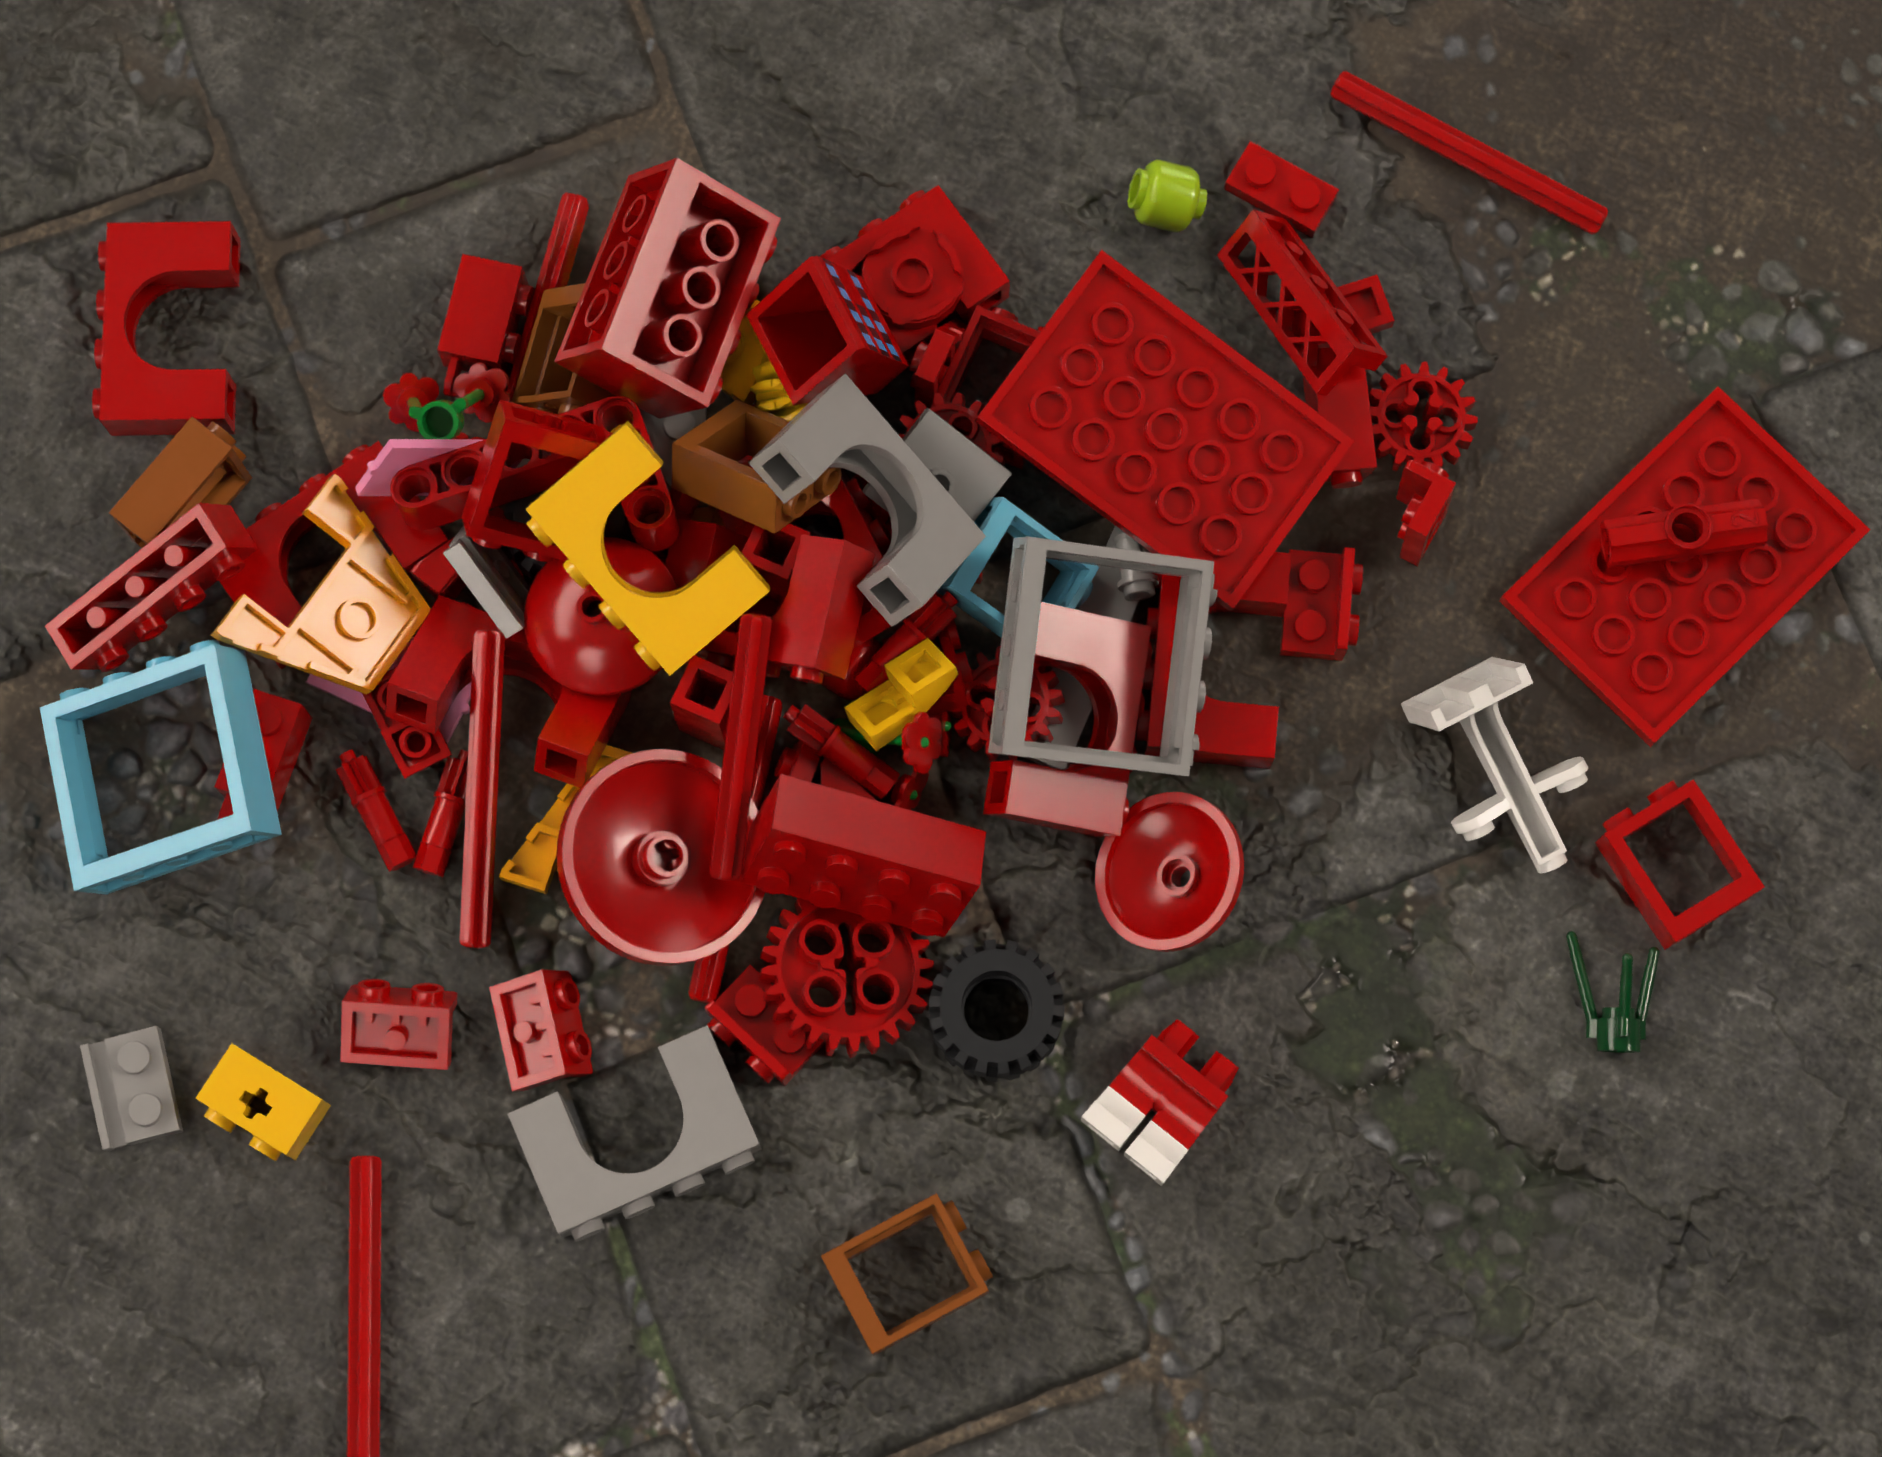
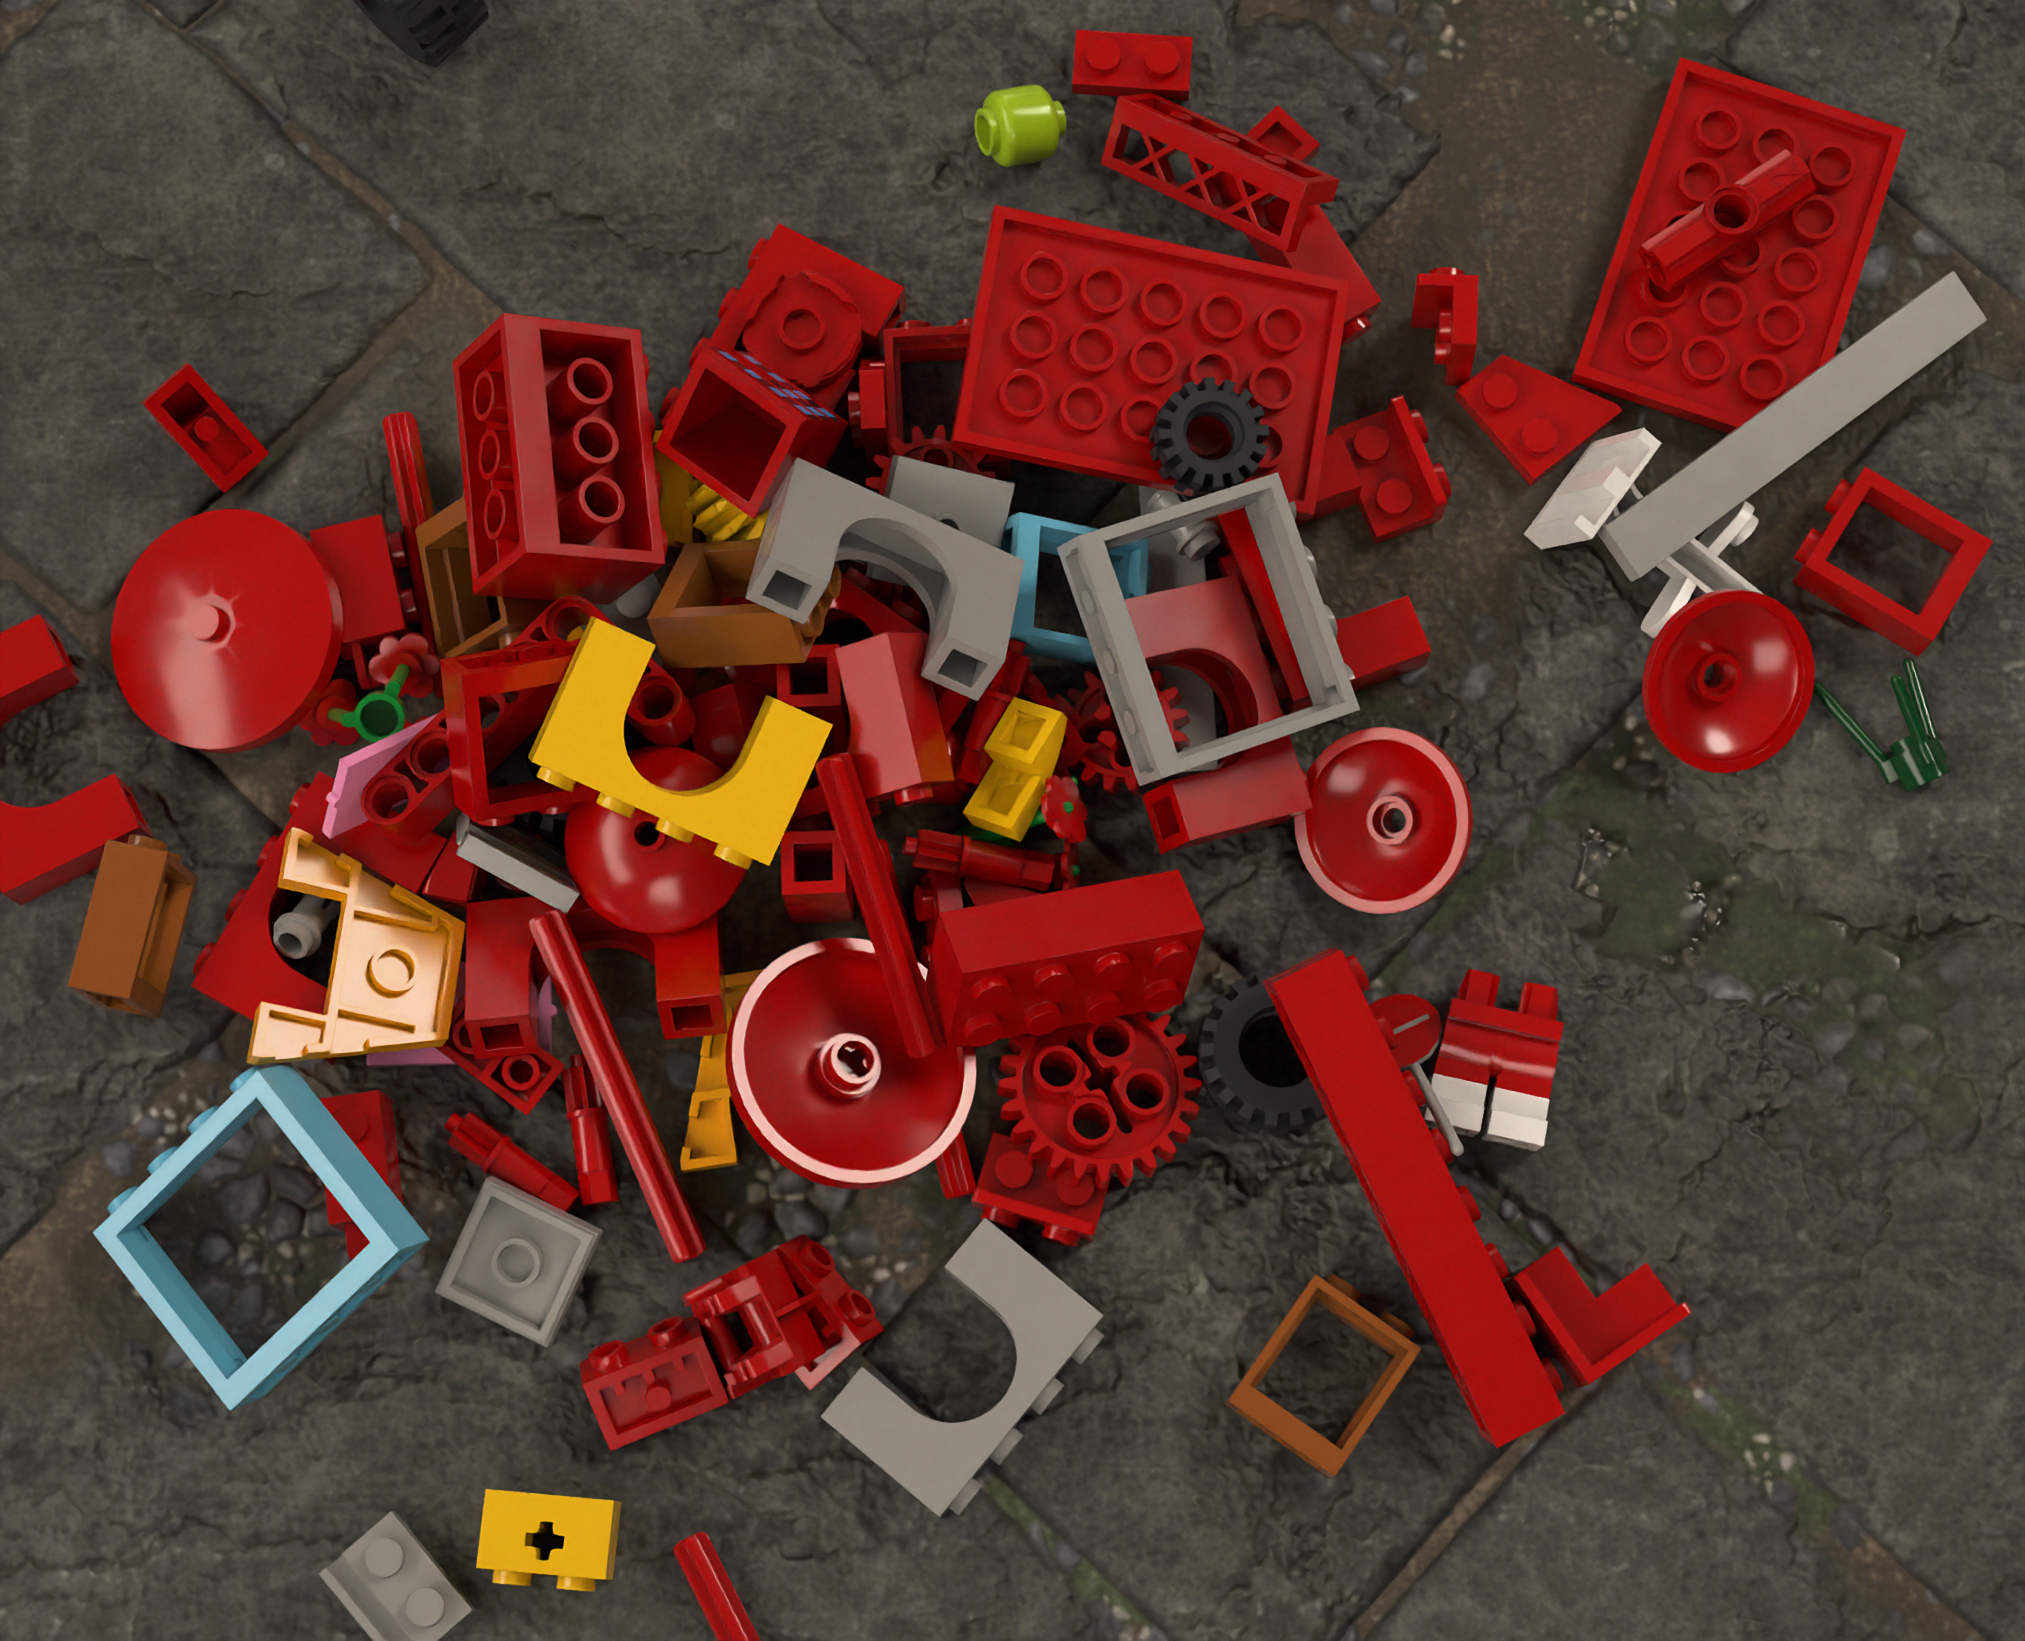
camera: 25 degrees left, 0 degrees up
(152, 588) = (153, 1044): red brick -> none
(304, 555) = (300, 931): none -> light grey pin
(344, 885) = (519, 1261): none -> light grey plate
(364, 301) = (226, 631): none -> red dish
(424, 137) = (205, 427): none -> red slope
(509, 1019) = (771, 1314): none -> red piece
(1041, 1171) = (1415, 1196): none -> red brick
(1097, 1044) = (1418, 1035): none -> red piece
(1128, 1343) = (1592, 1332): none -> red panel
(1193, 481) = (1229, 408): none -> black tyre
(1443, 400) = (1411, 200): red gear -> none
(1456, 614) = (1533, 415): none -> red wing
(1515, 917) = (1757, 684): none -> red dish
(1652, 719) = (1790, 426): none -> light grey tile

